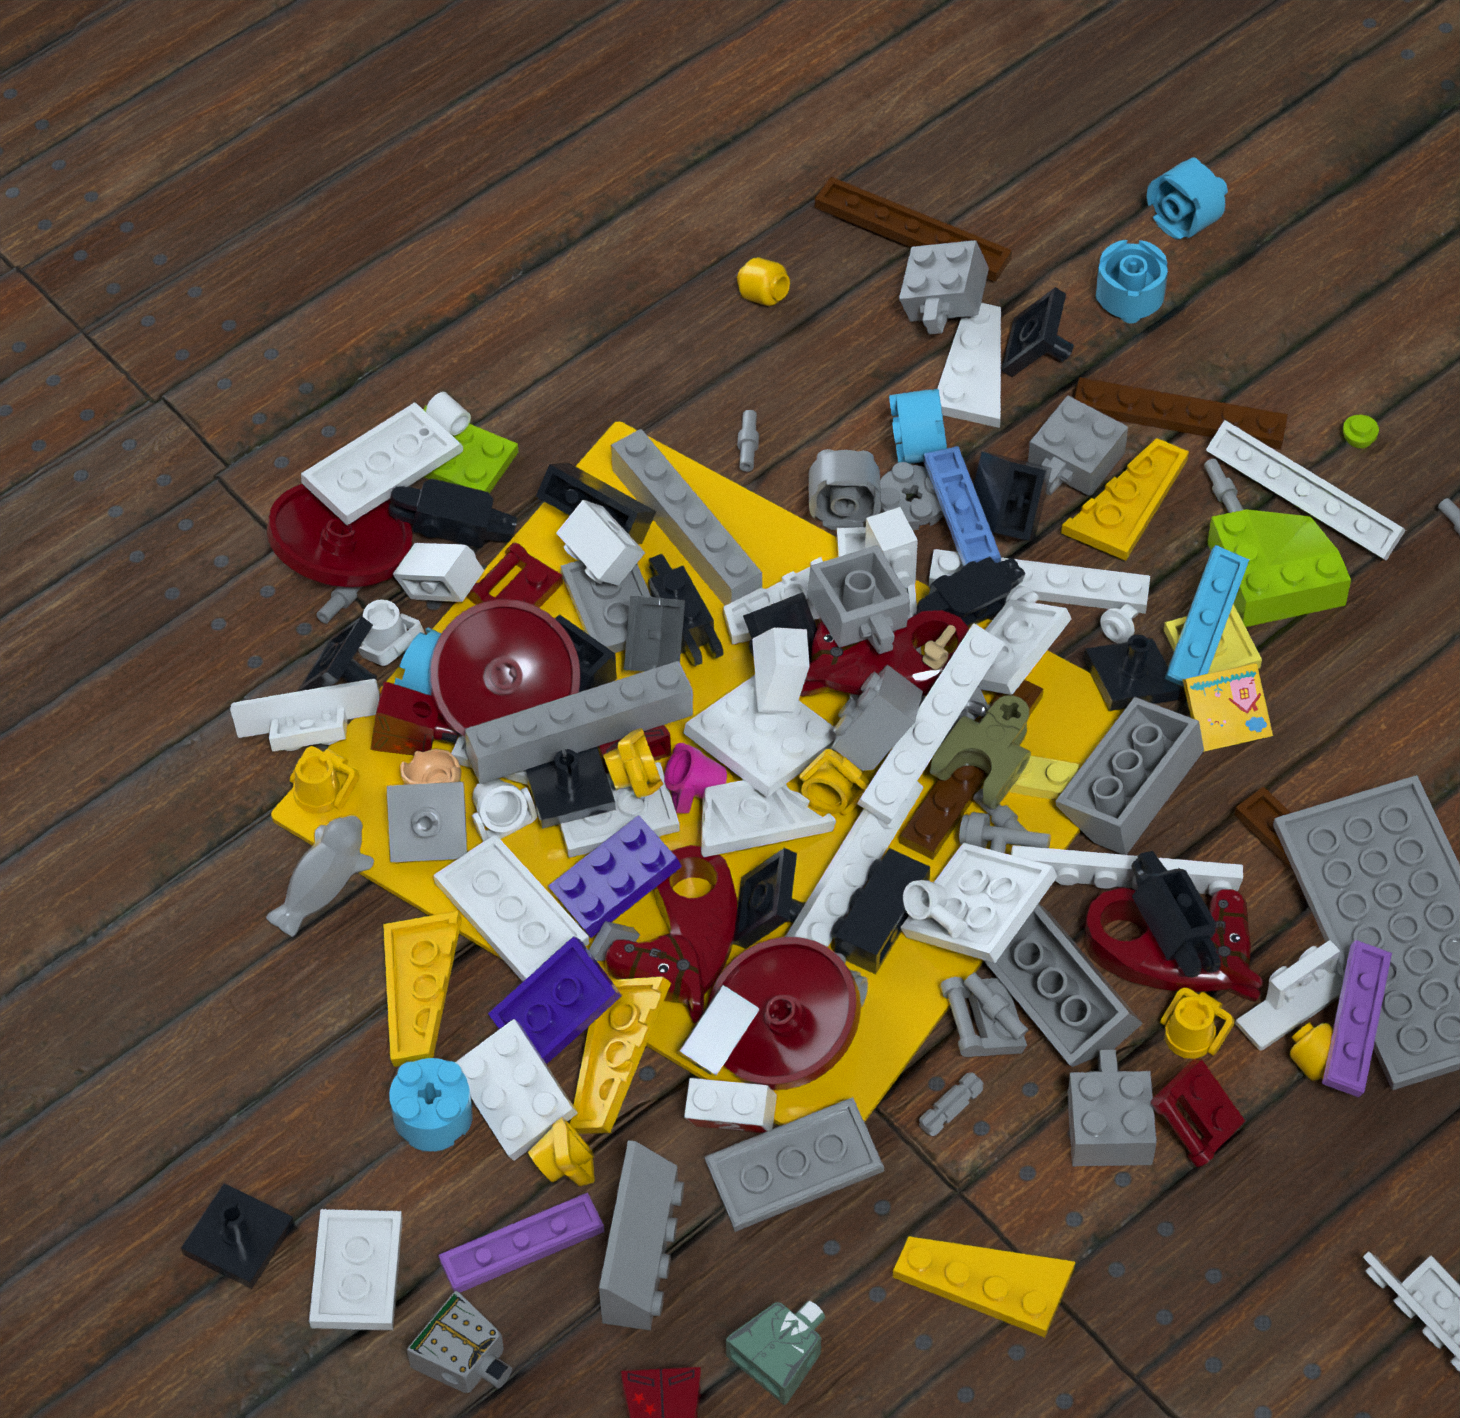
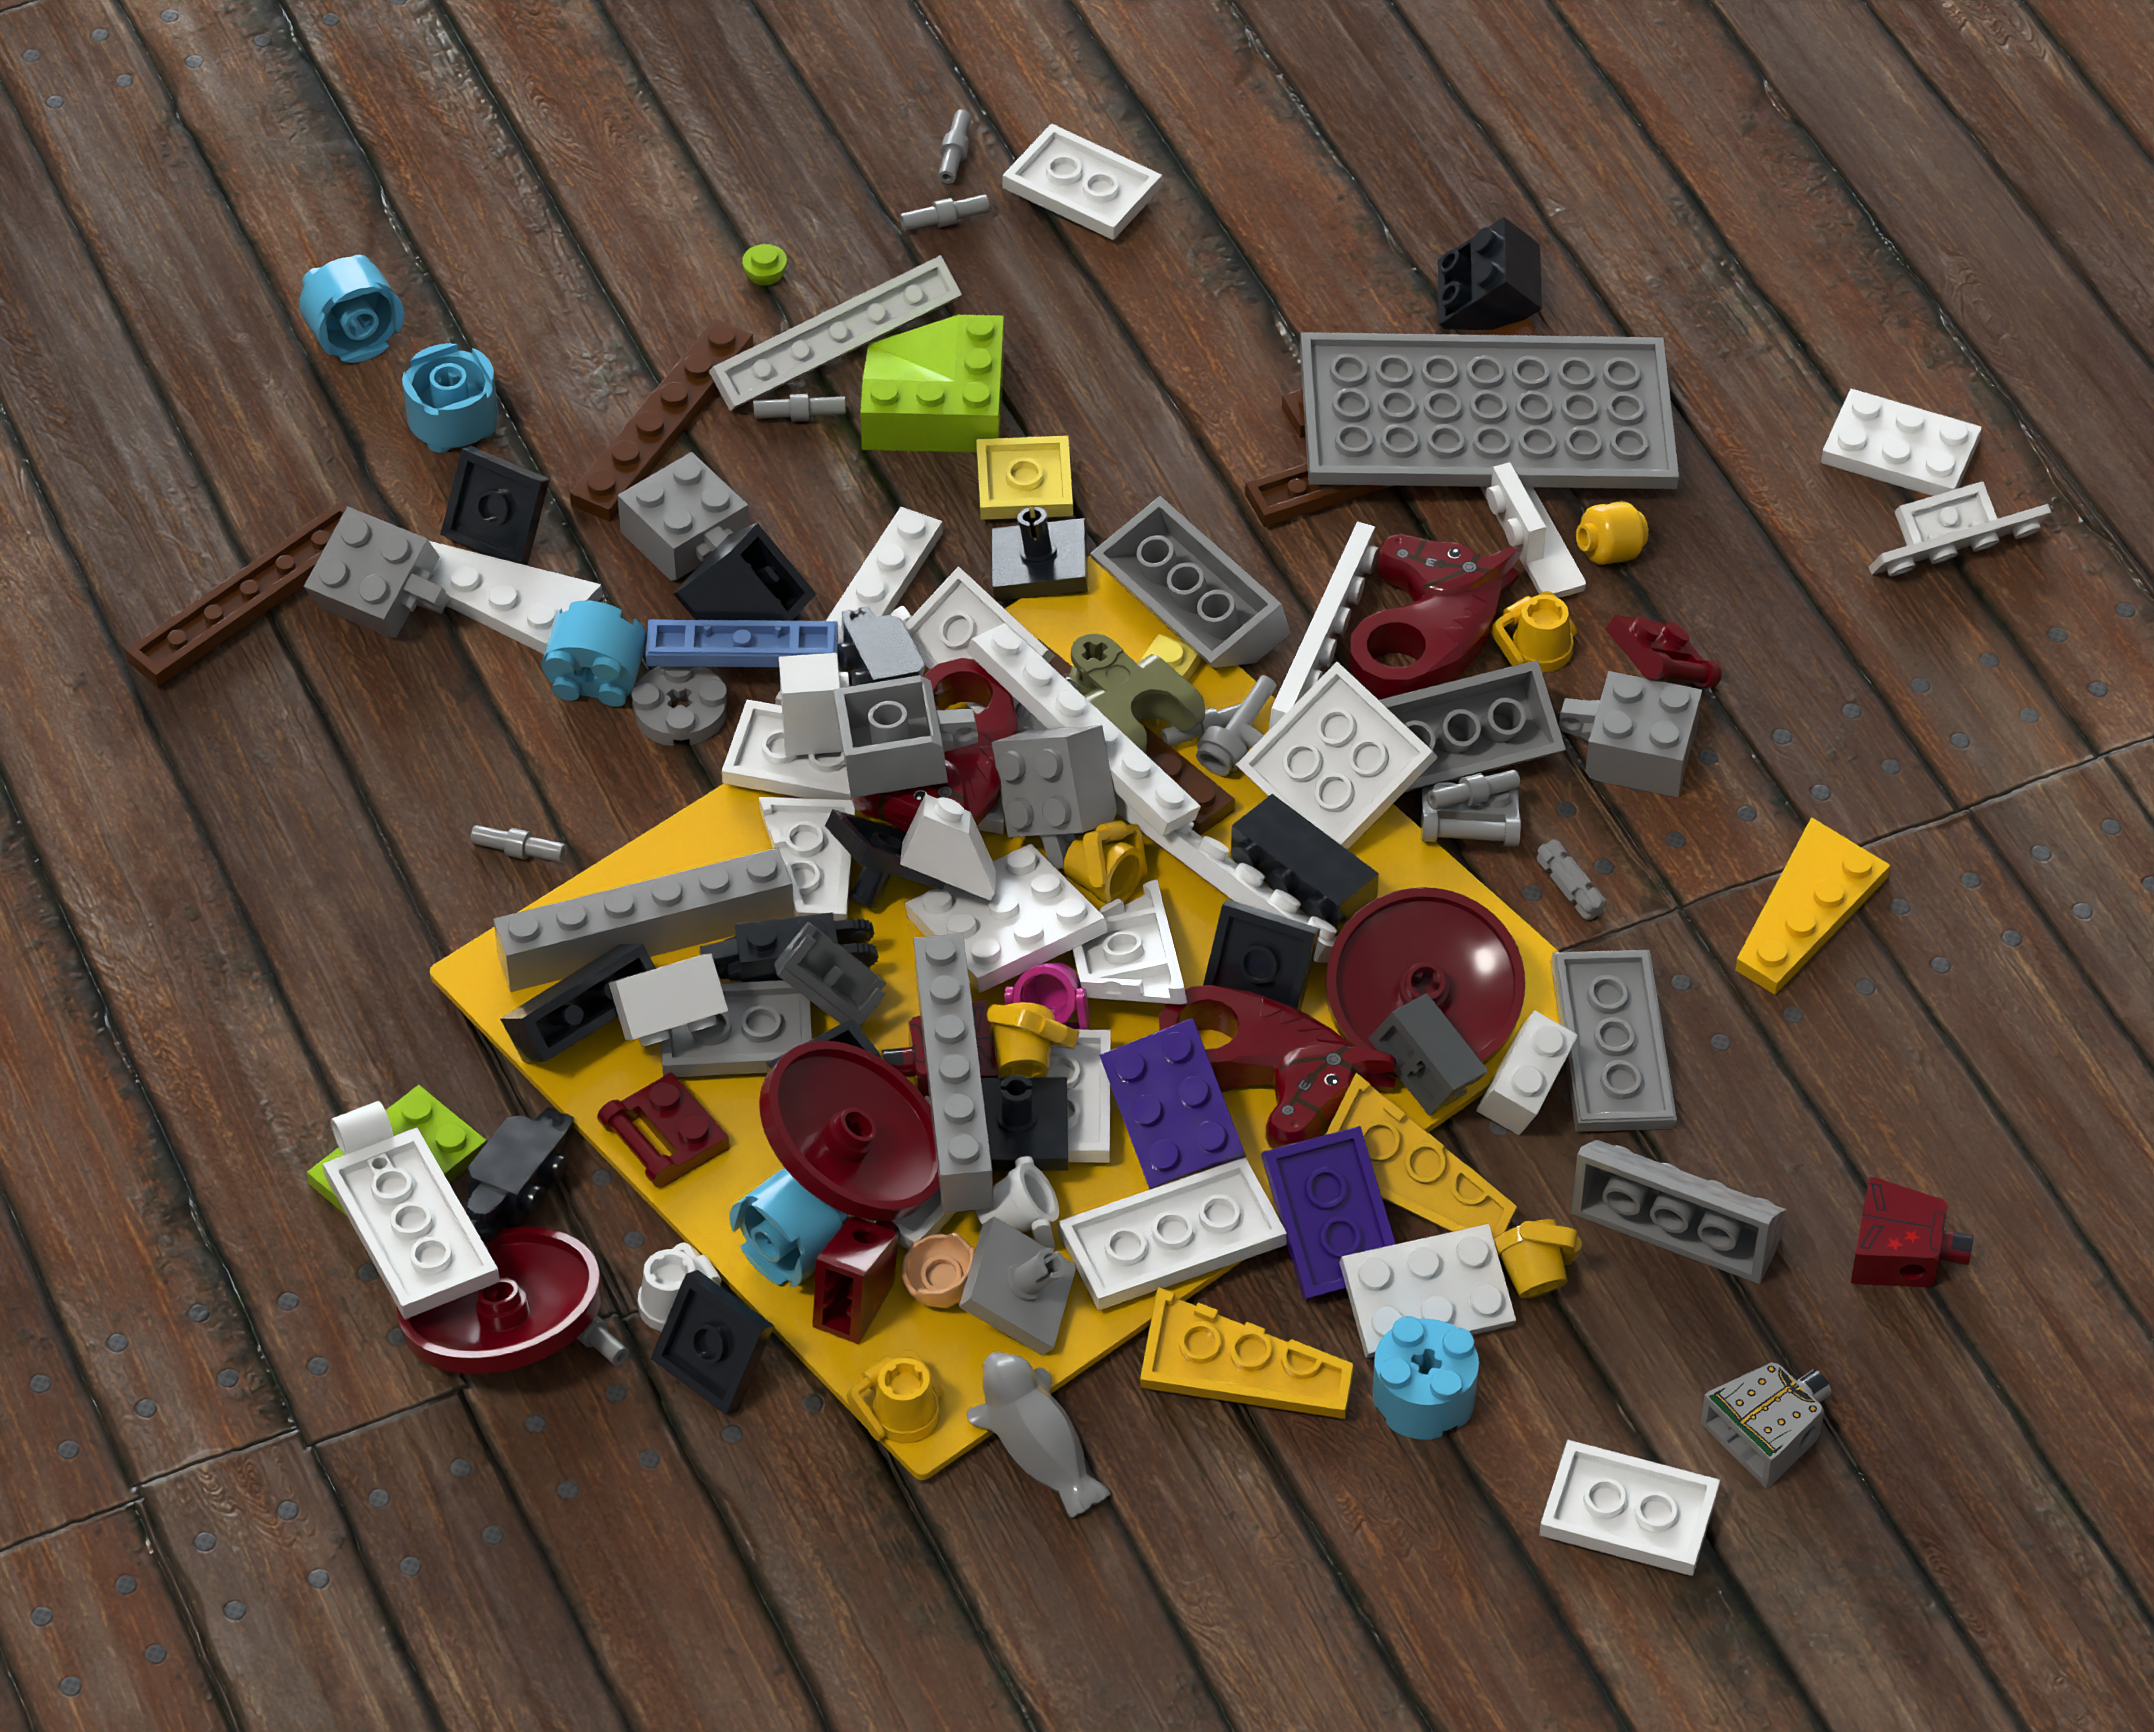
camera: 75 degrees left, 5 degrees down
(237, 1236) = (1540, 1631): black tile -> none
(306, 715) = (792, 1396): white bracket -> none
(438, 572) = (614, 1200): white brick -> none
(521, 1243) = (1635, 1338): medium lavender tile -> none
(607, 935) = (1252, 1139): light grey tile -> none
(763, 281) = (269, 762): yellow head -> none
(778, 1347) = (1852, 1110): sand green torso -> none
(844, 488) = (659, 751): light grey brick -> none
(926, 900) = (1338, 798): white bar -> none
(935, 652) = (991, 693): tan hand -> none
(1118, 623) = (962, 550): white plate -> none
(1128, 503) = (781, 497): yellow wing -> none
(1175, 915) = (1423, 582): black hinge -> none
(1207, 615) = (1009, 455): medium azure tile -> none
(1228, 706) = (1122, 476): yellow tile -> none
(1357, 1018) = (1597, 475): medium lavender tile -> none

